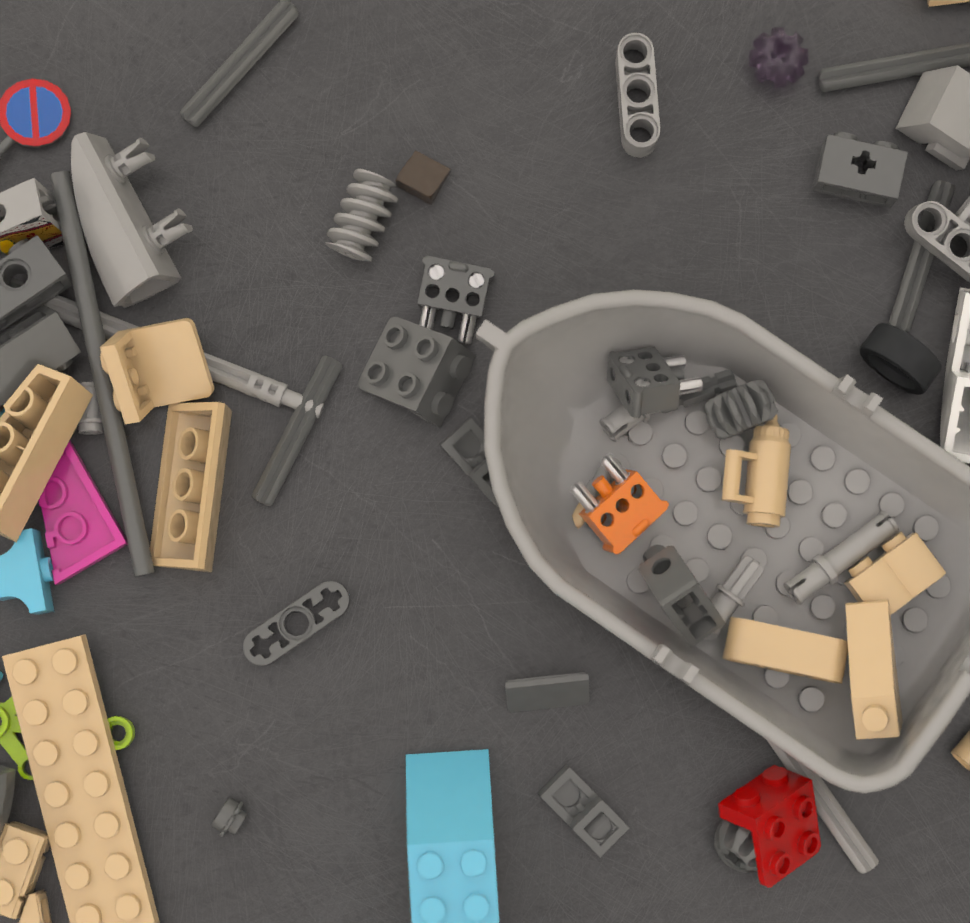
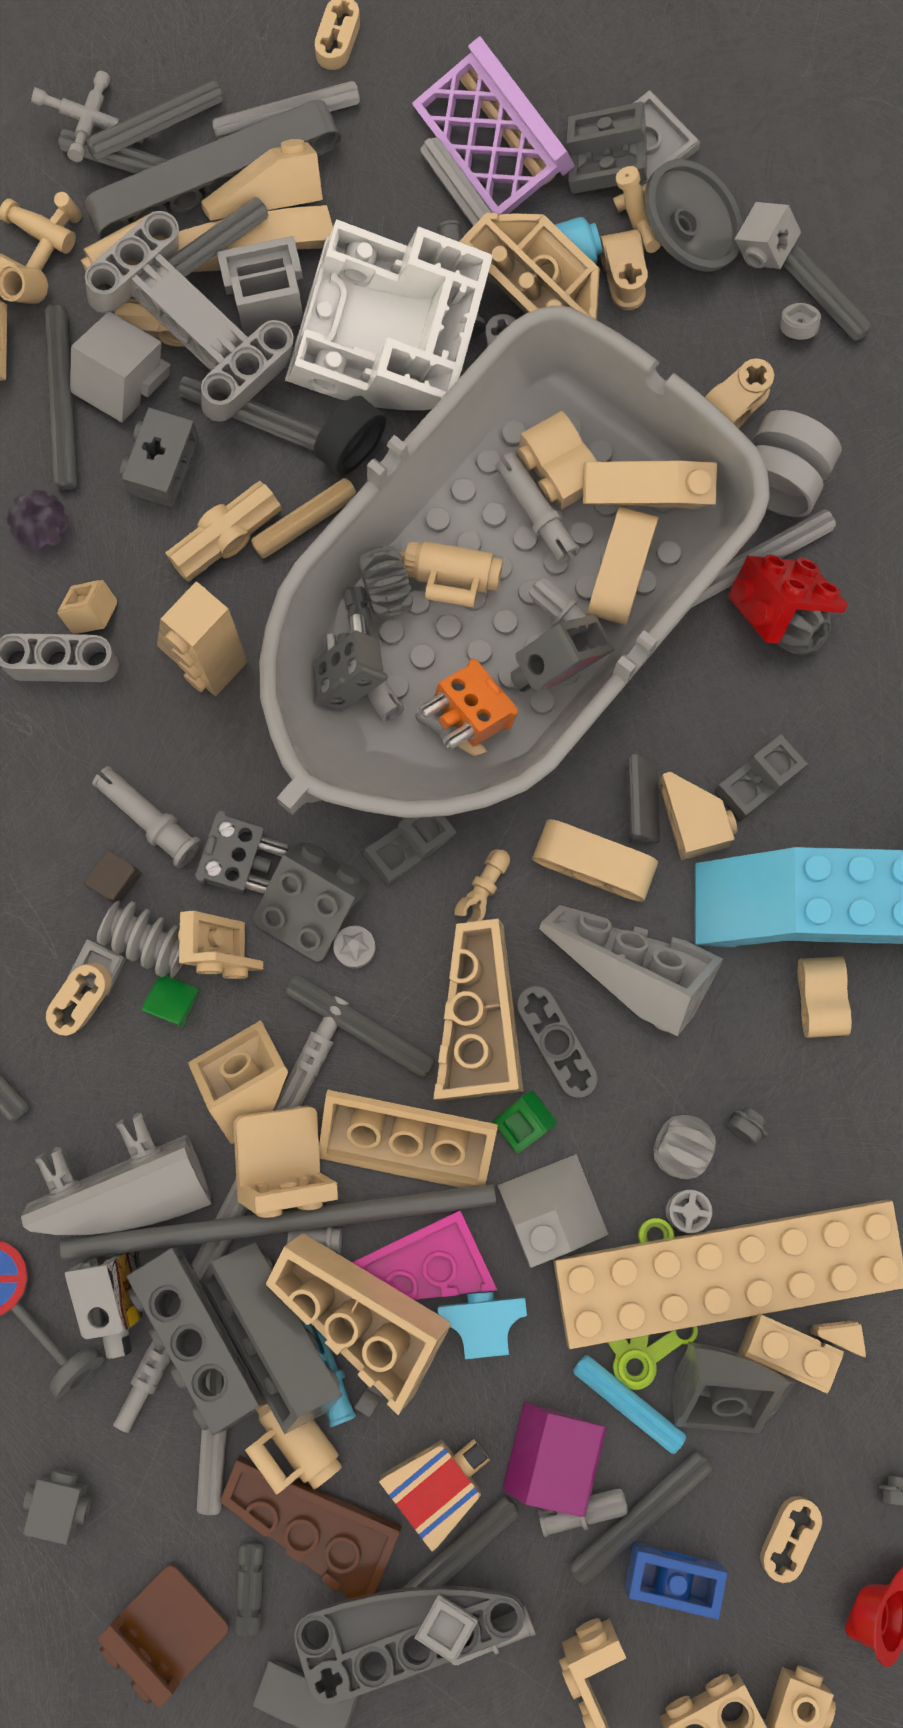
camera: 85 degrees left, 5 degrees down
(132, 632) = (552, 1210): none -> light grey slope
(134, 763) = (696, 1212): none -> light grey wheel
(202, 754) = (684, 1147): none -> light grey piece
(218, 599) = (525, 1121): none -> green slope
(236, 320) = (240, 1076): none -> tan slope
(296, 167) = (85, 1003): none -> tan beam
(306, 247) = (170, 1000): none -> green slope
(309, 545) = (479, 1029): none -> tan wedge
(333, 173) = (95, 953): none -> light grey tile
(358, 280) = (214, 945): none -> tan bracket
(362, 886) = (824, 996): none -> tan axle
(371, 705) = (648, 975): none -> light grey wedge
(374, 418) = (354, 947): none -> light grey tile
(470, 549) = (496, 864): none -> tan piece
(474, 217) = (160, 828): none -> light grey pin
(479, 647) = (595, 860): none -> tan beam
(532, 746) = (696, 817): none -> tan slope
(655, 232) = (202, 640): none -> tan wedge
(695, 119) = (87, 607): none -> tan slope
(787, 243) = (223, 531): none -> tan piece
(812, 323) = (303, 518): none -> tan axle
(929, 820) = (797, 460): none -> light grey wheel

